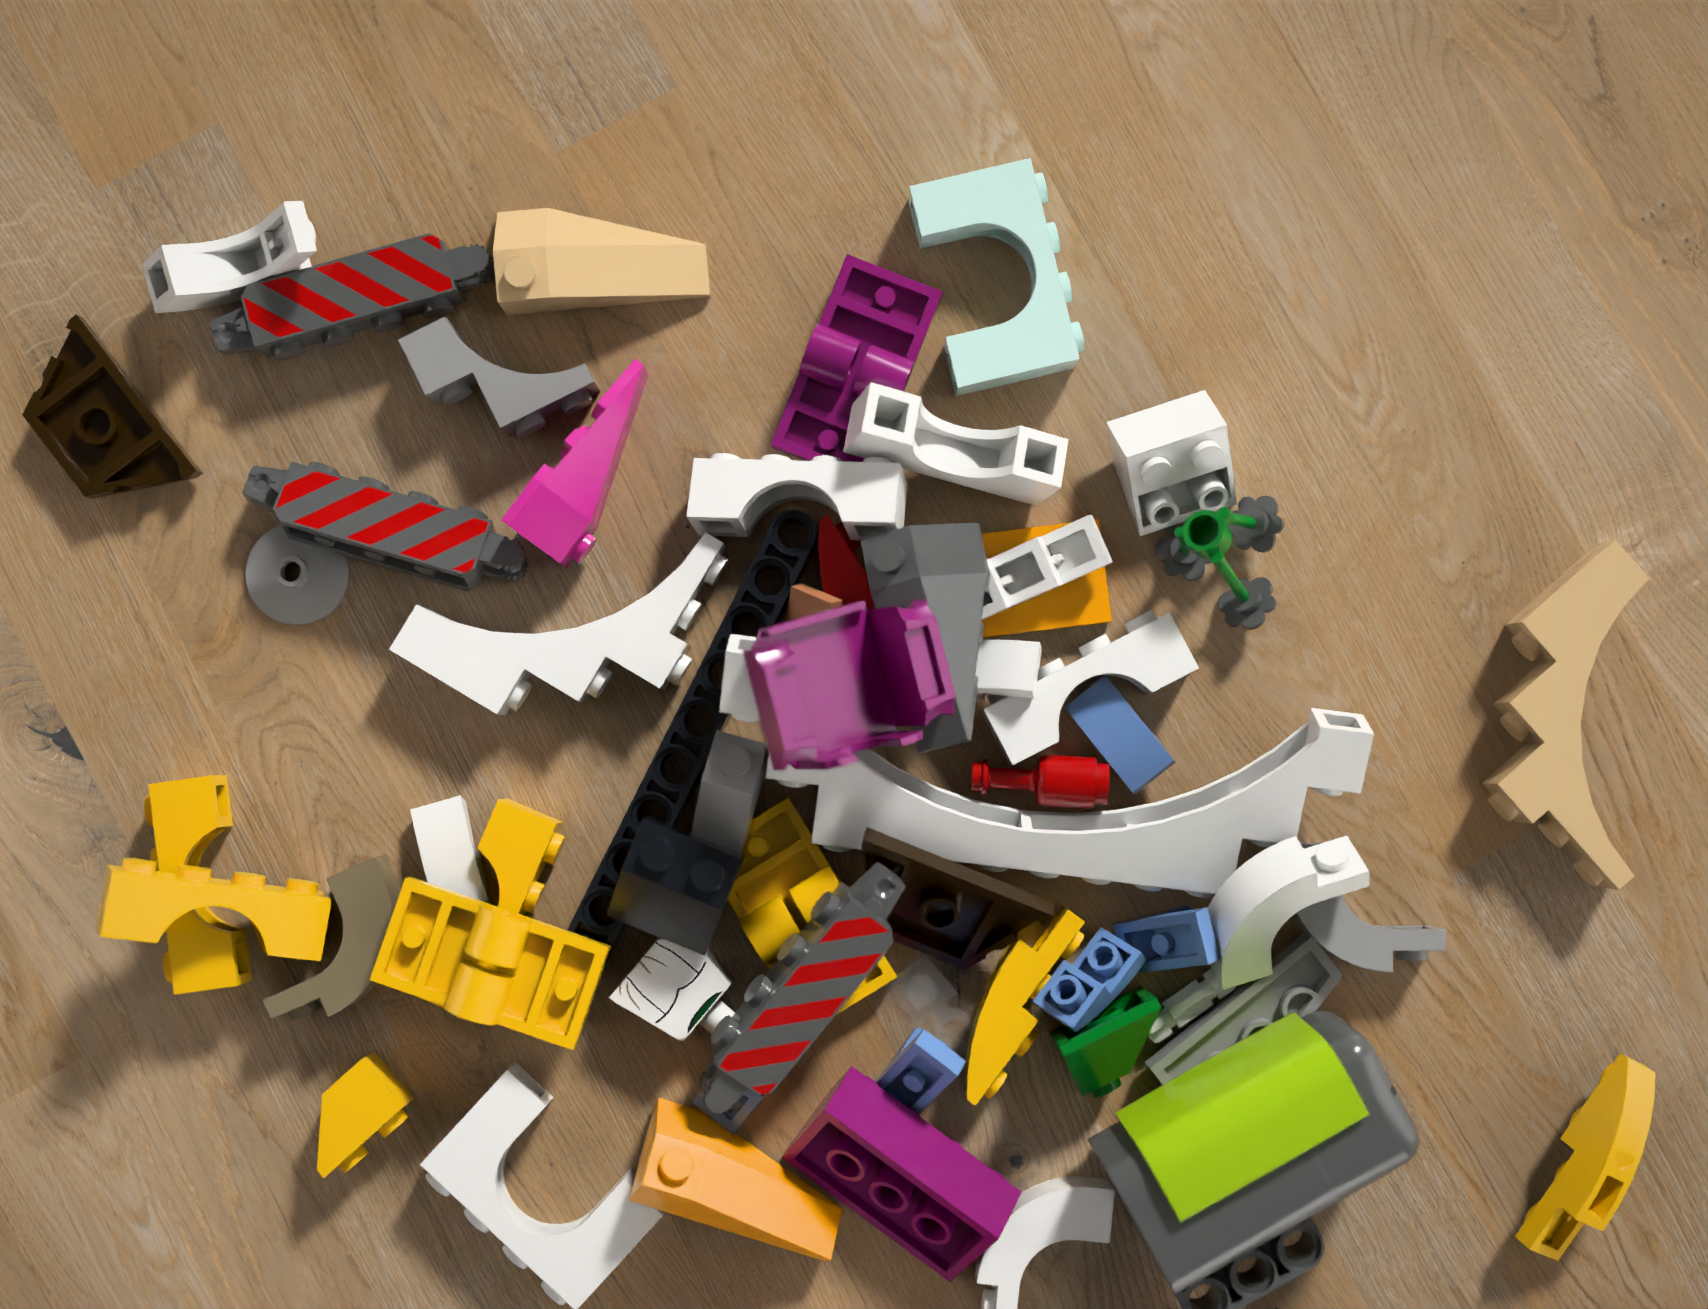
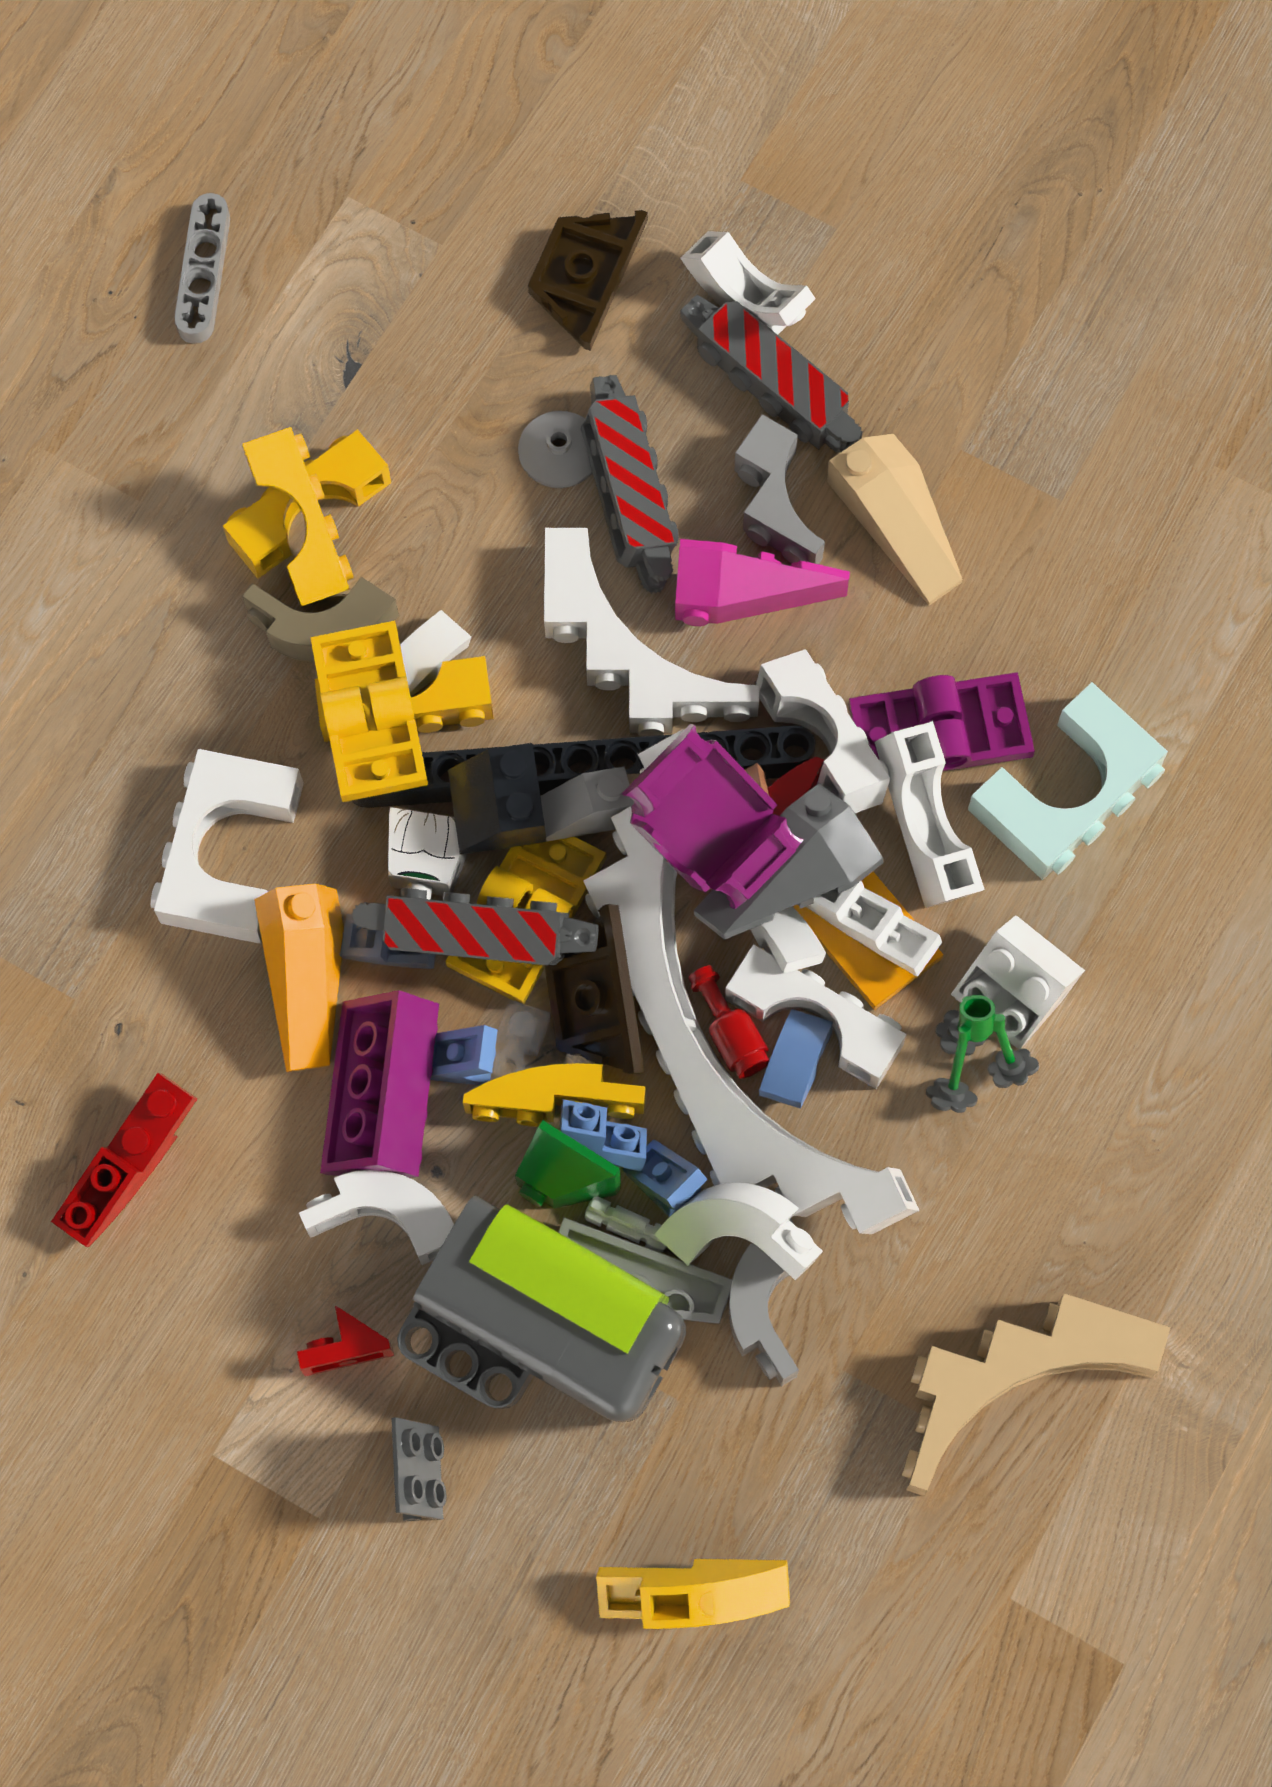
camera: 65 degrees right, 15 degrees down
(354, 1109) = (209, 692): yellow slope -> none

